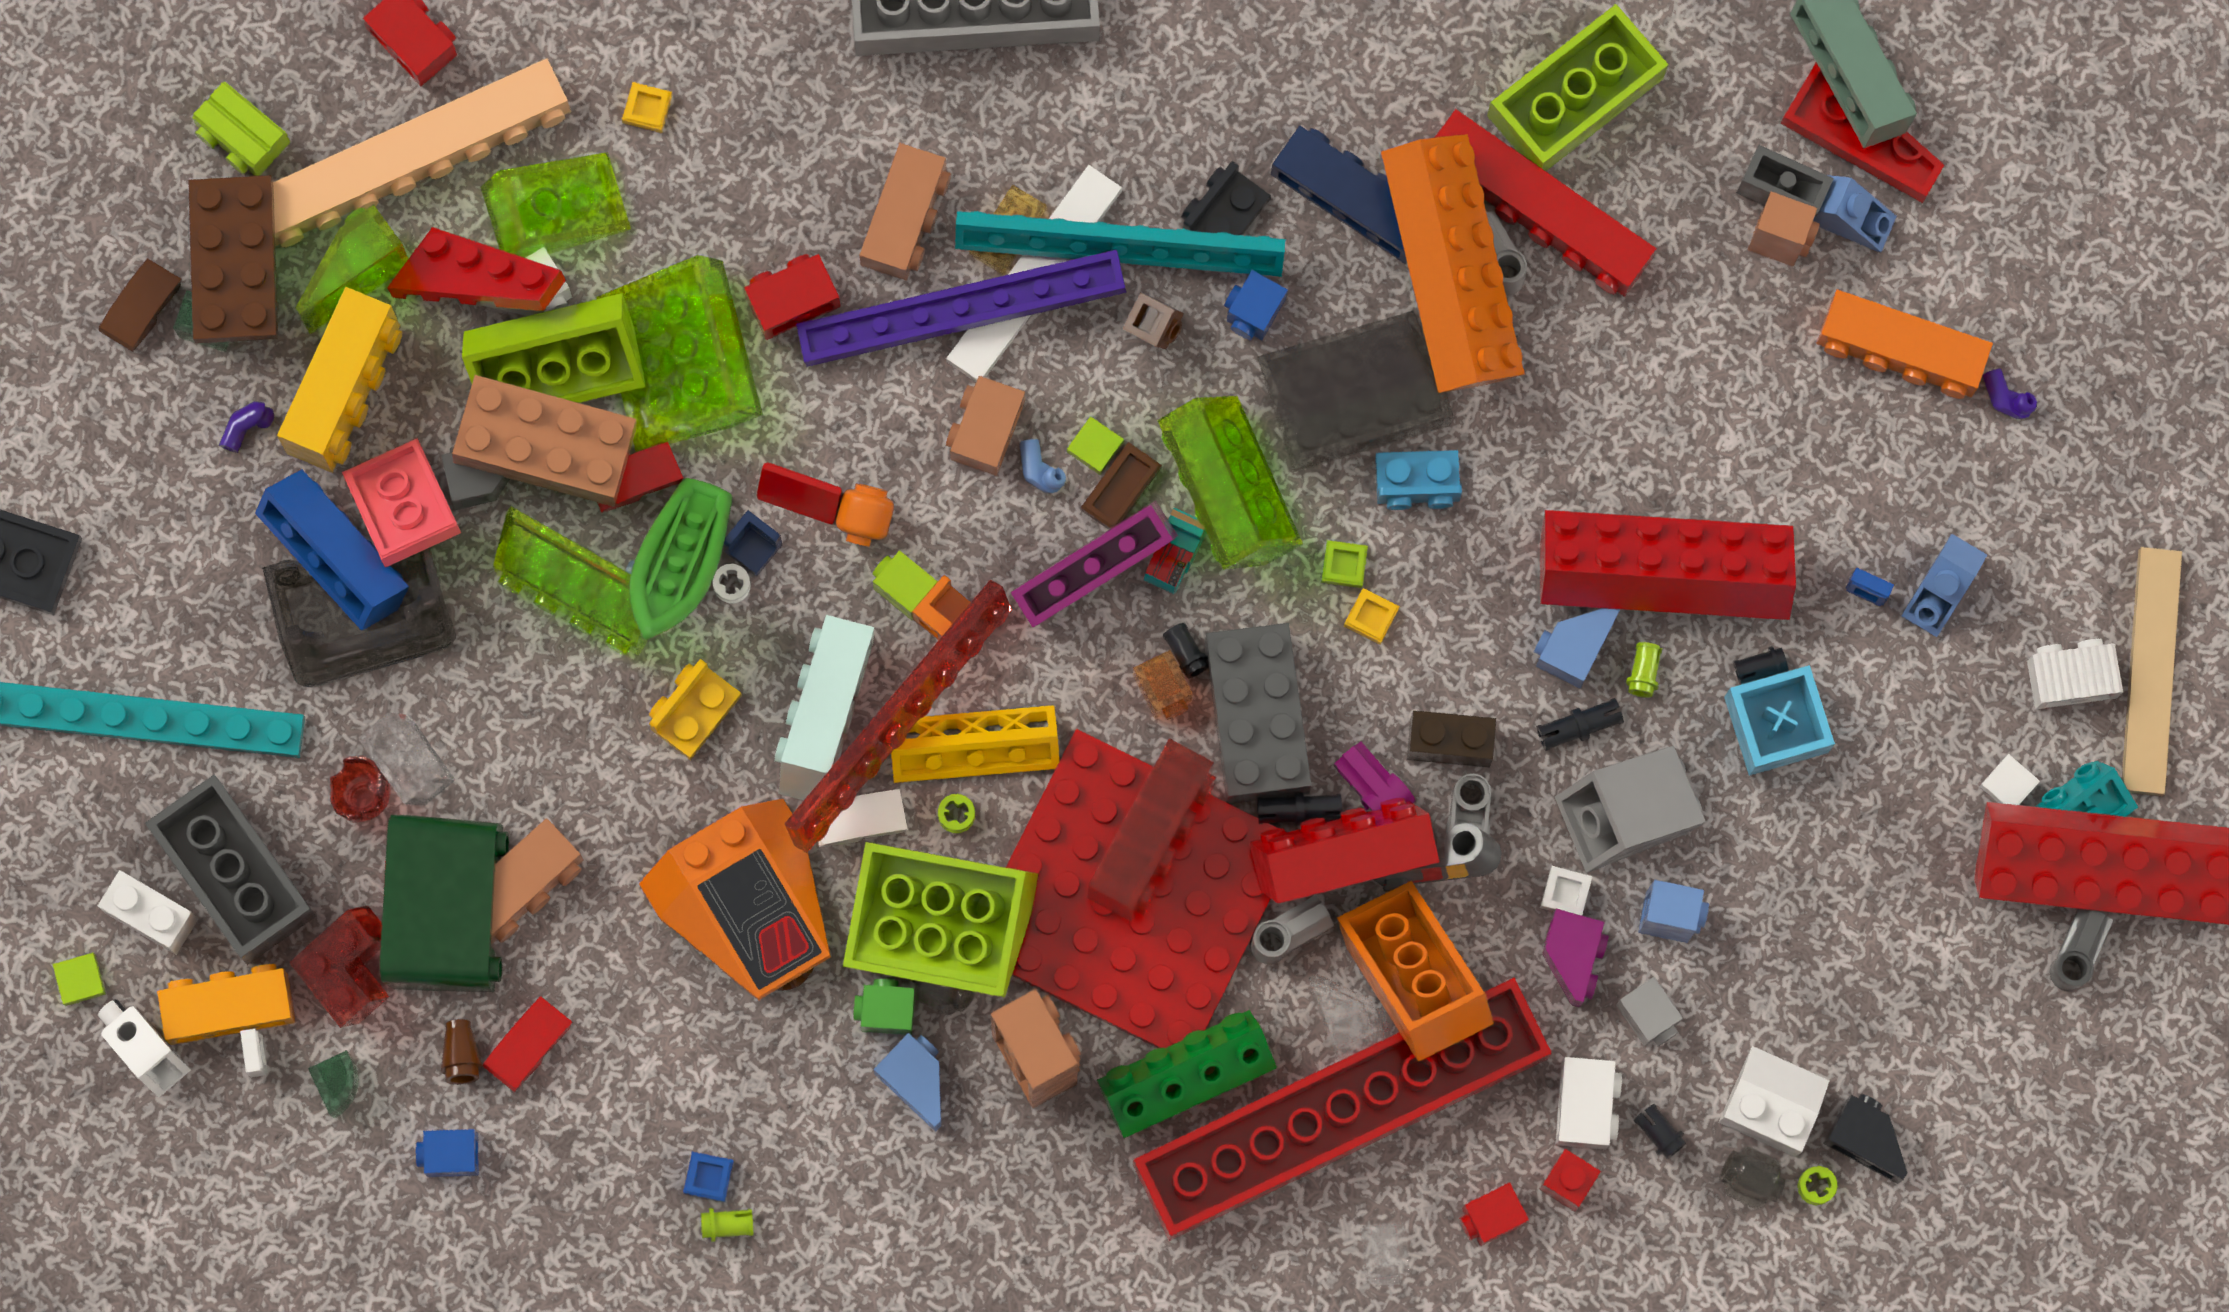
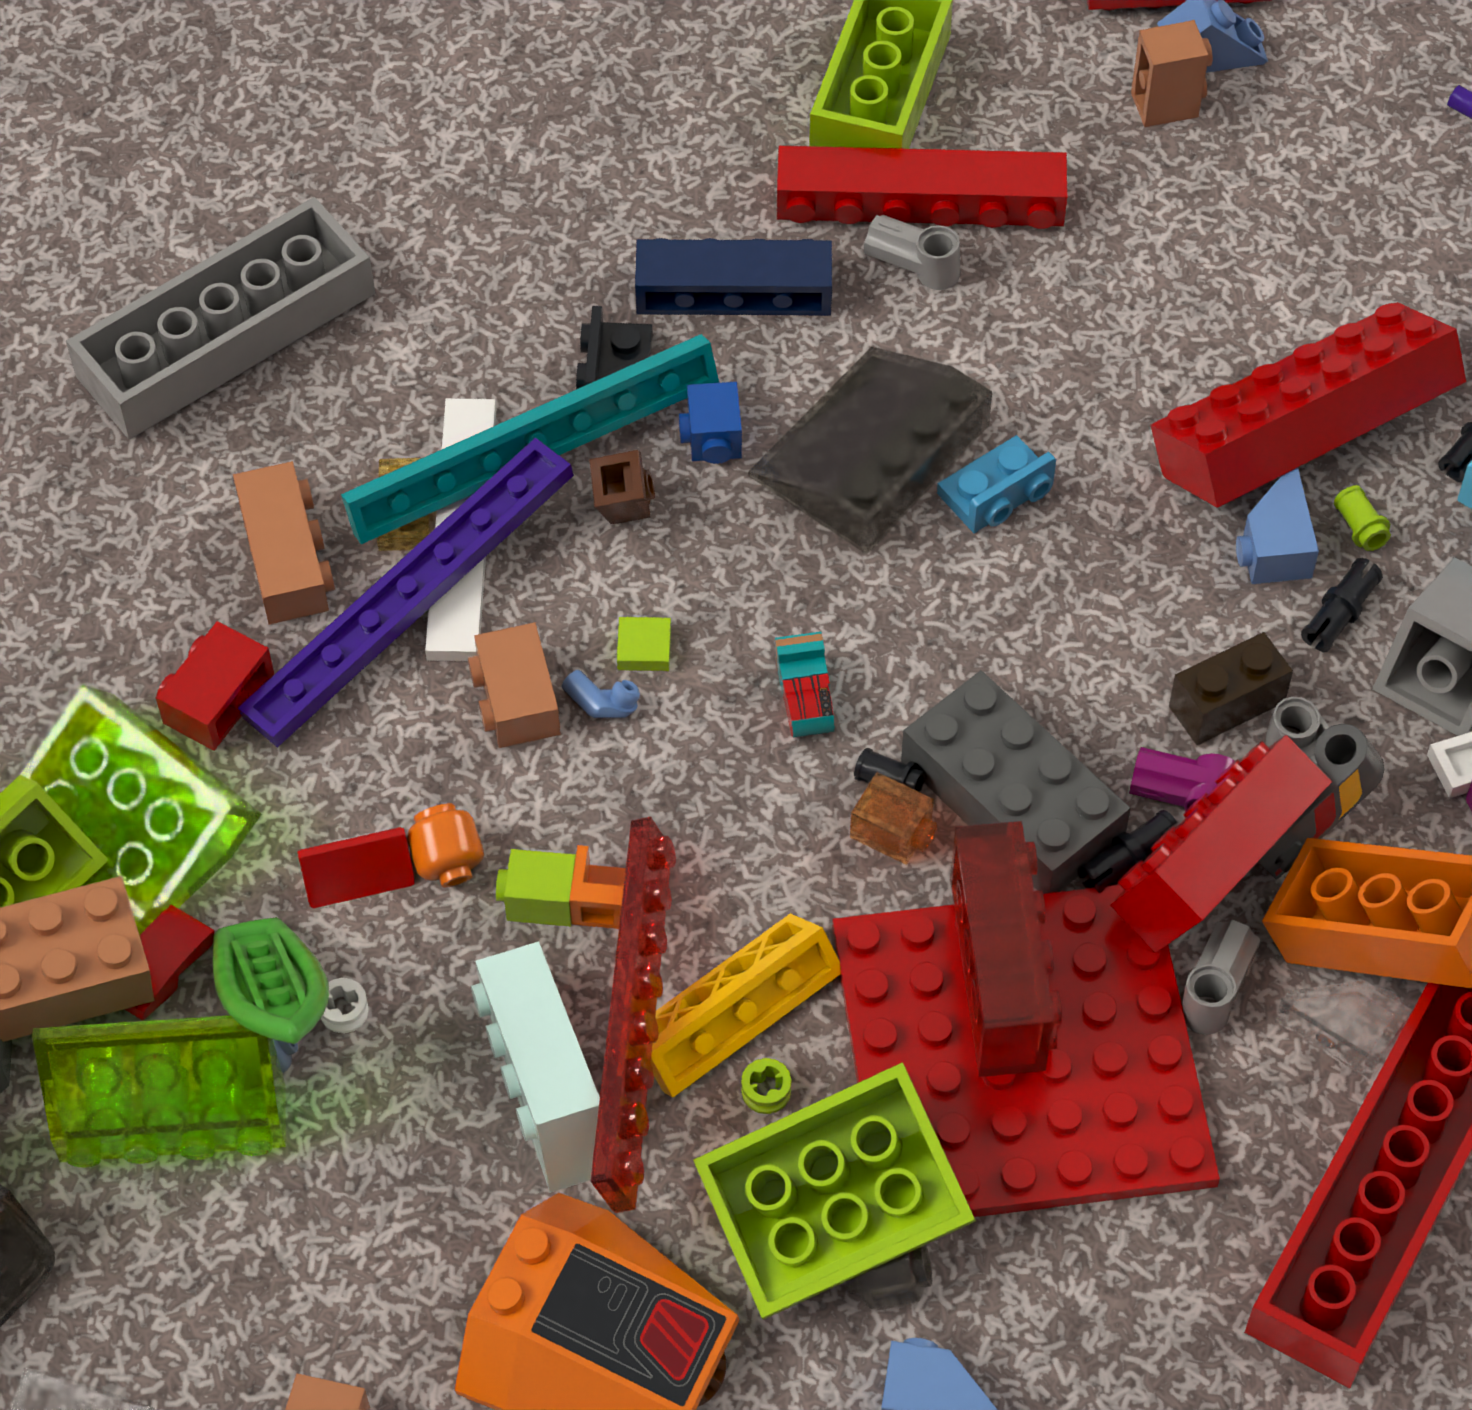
camera: 30 degrees left, 20 degrees down
(693, 708) = (389, 1160): yellow bracket -> none
(752, 543) = (341, 941): dark blue panel -> none
(868, 817) = (670, 1150): white slope -> none
(885, 1008) = (843, 1338): bright green brick -> none
(1035, 1048) = (1056, 1245): nougat brick -> none
(1094, 564) = (733, 734): magenta brick -> none
(1121, 487) = (701, 667): reddish brown tile -> none
(1186, 1073) = (1229, 1188): green brick -> none
(1229, 482) = (815, 579): clear neon green brick -> none
(1344, 564) = (986, 602): lime tile -> none
(1371, 616) = (1052, 633): yellow tile -> none
(1453, 262) = (887, 256): orange brick -> none
(1784, 176) = (1115, 36): dark grey slope -> none
(1904, 344) = (1357, 111): orange brick -> none

